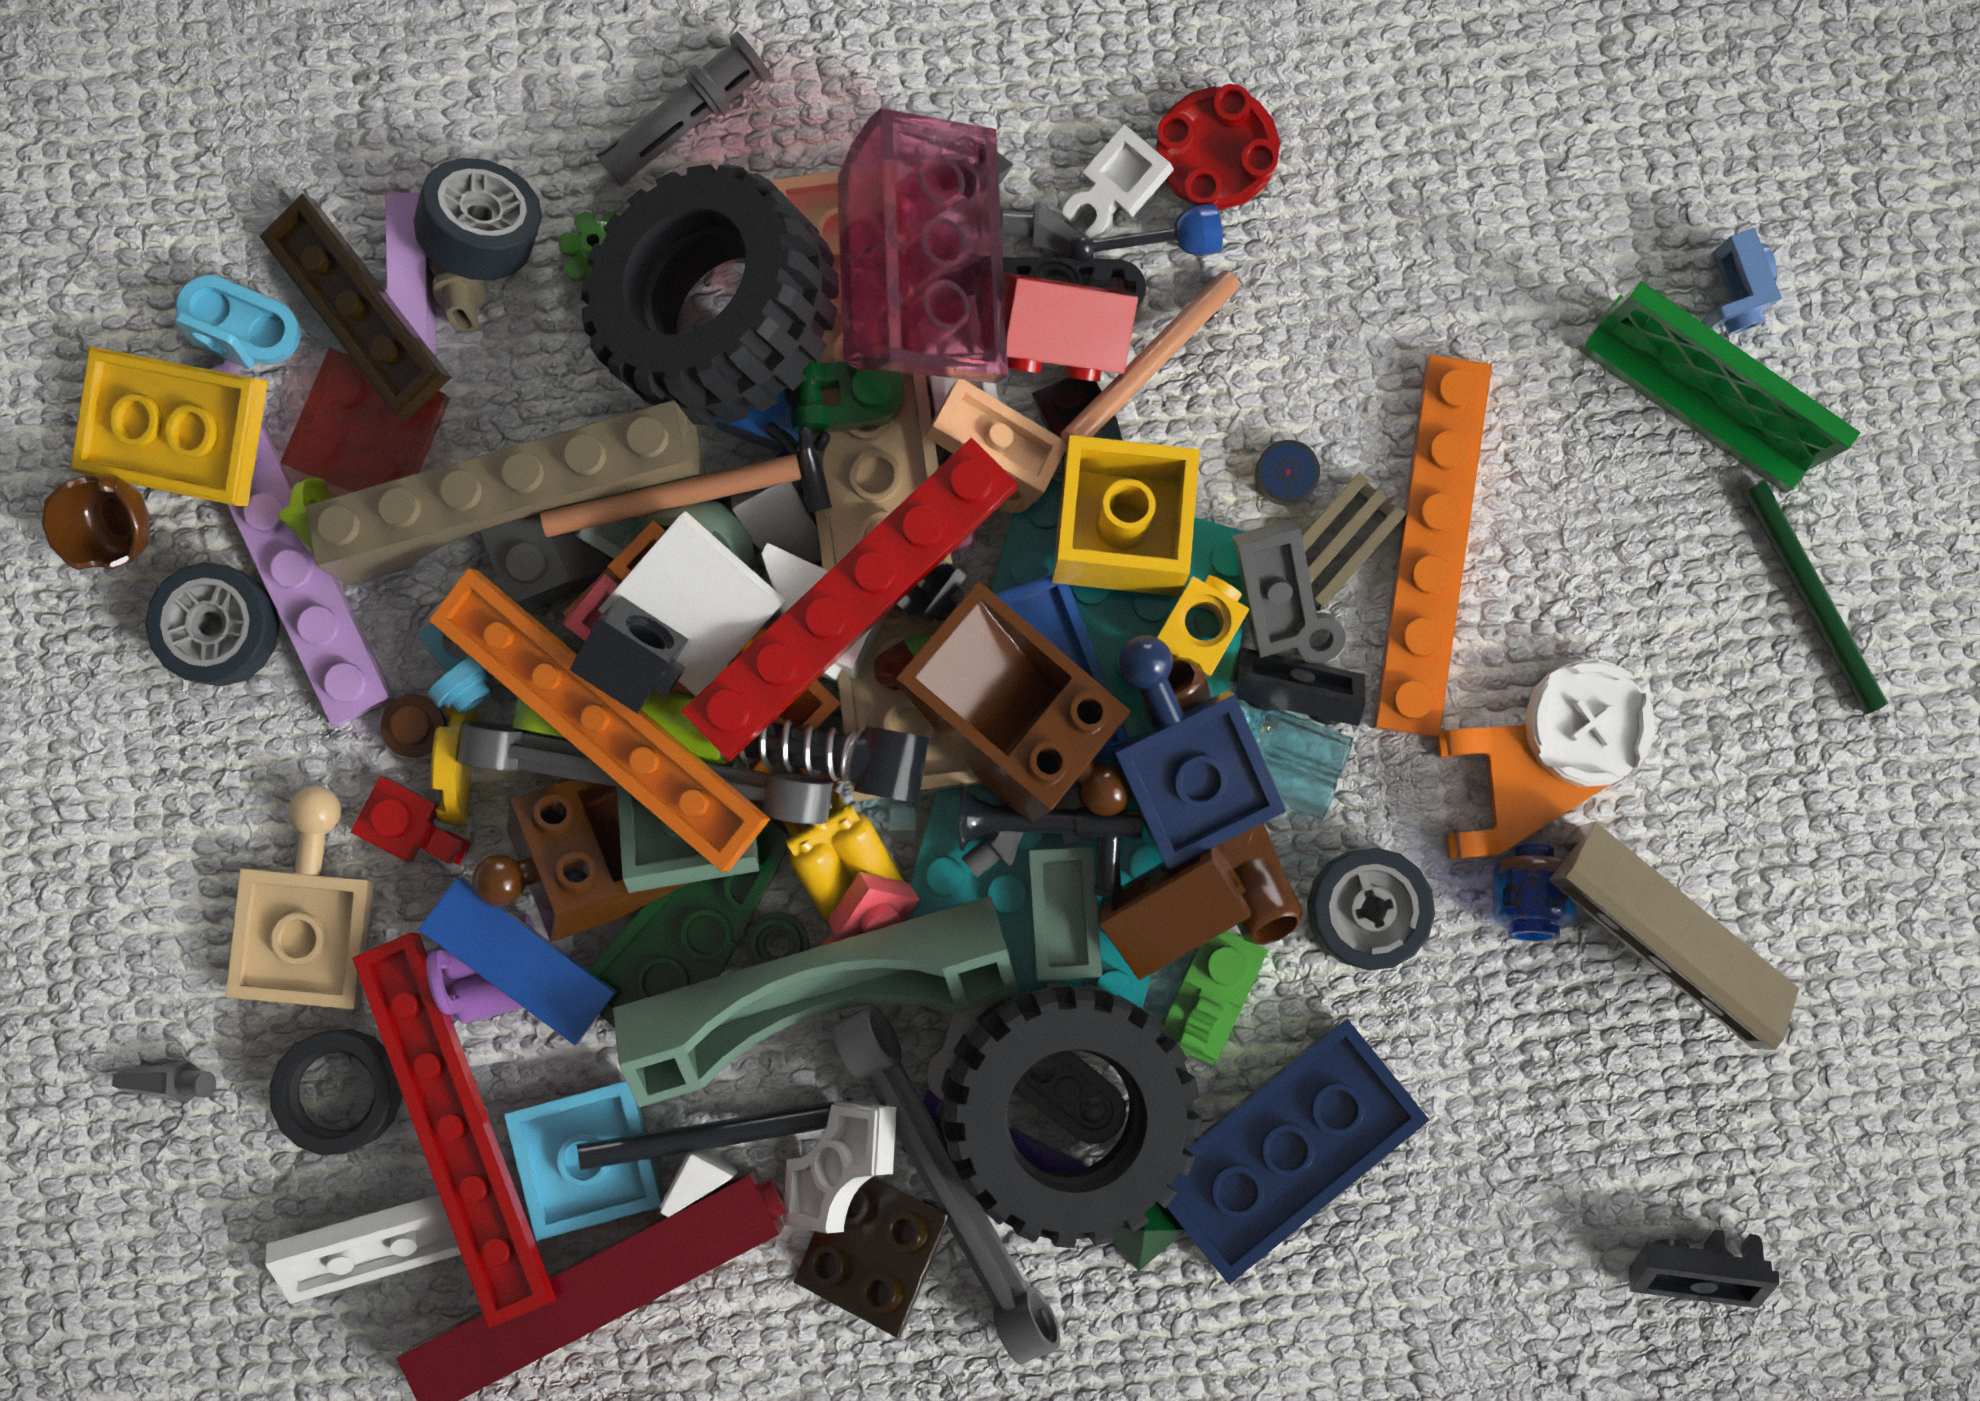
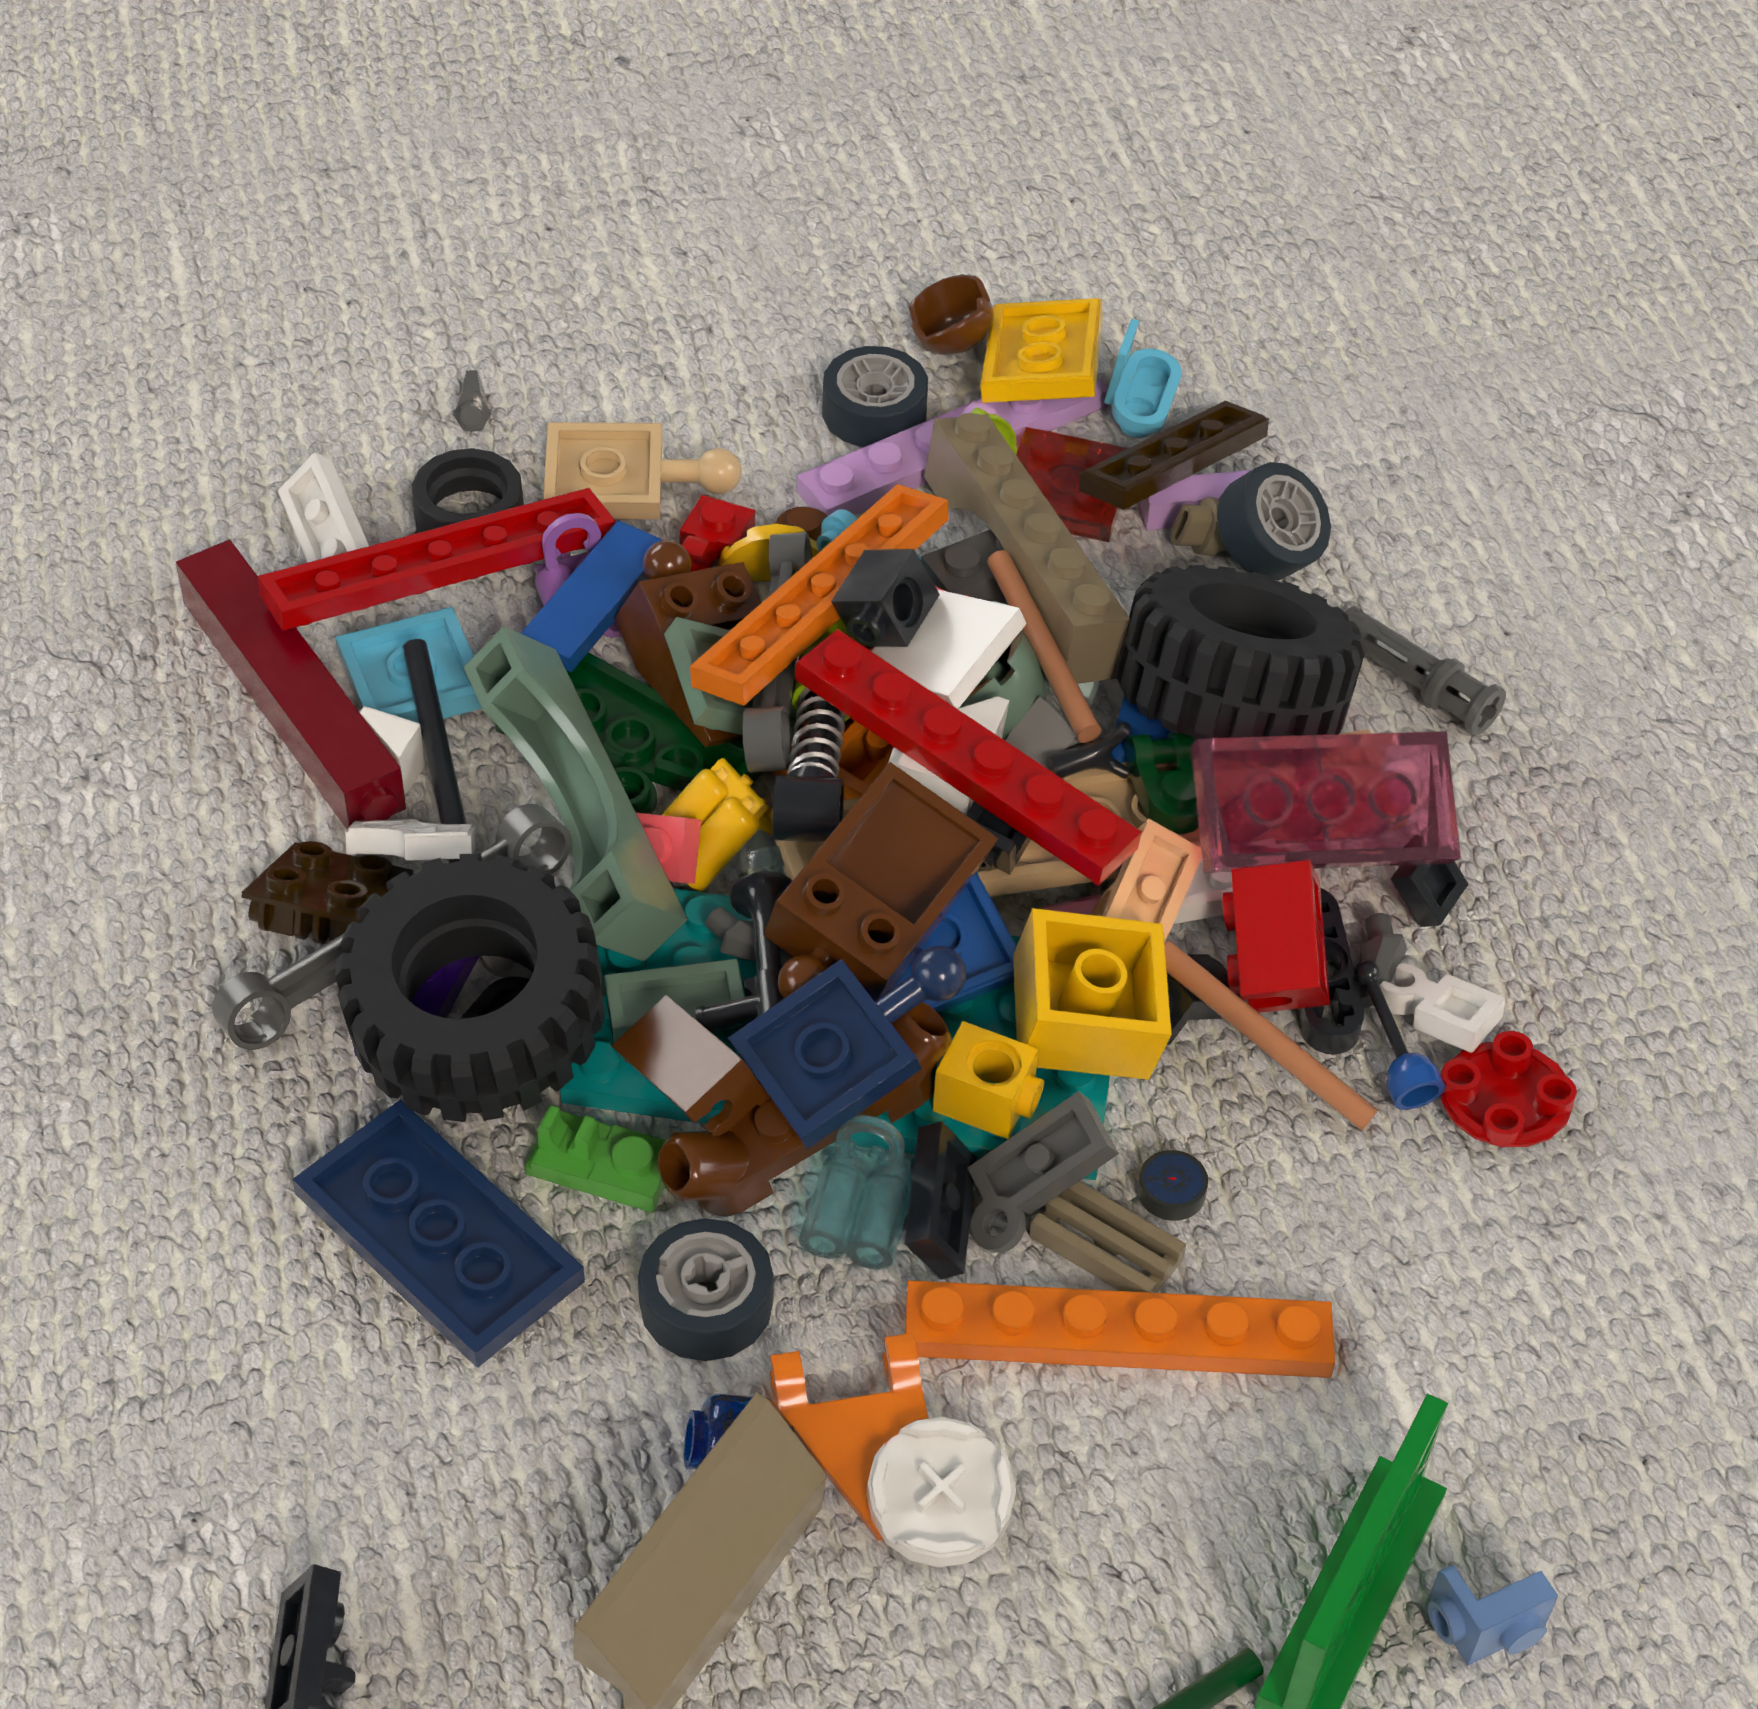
camera: 80 degrees right, 35 degrees down
(1150, 1239) = (346, 1112): dark green slope -> none

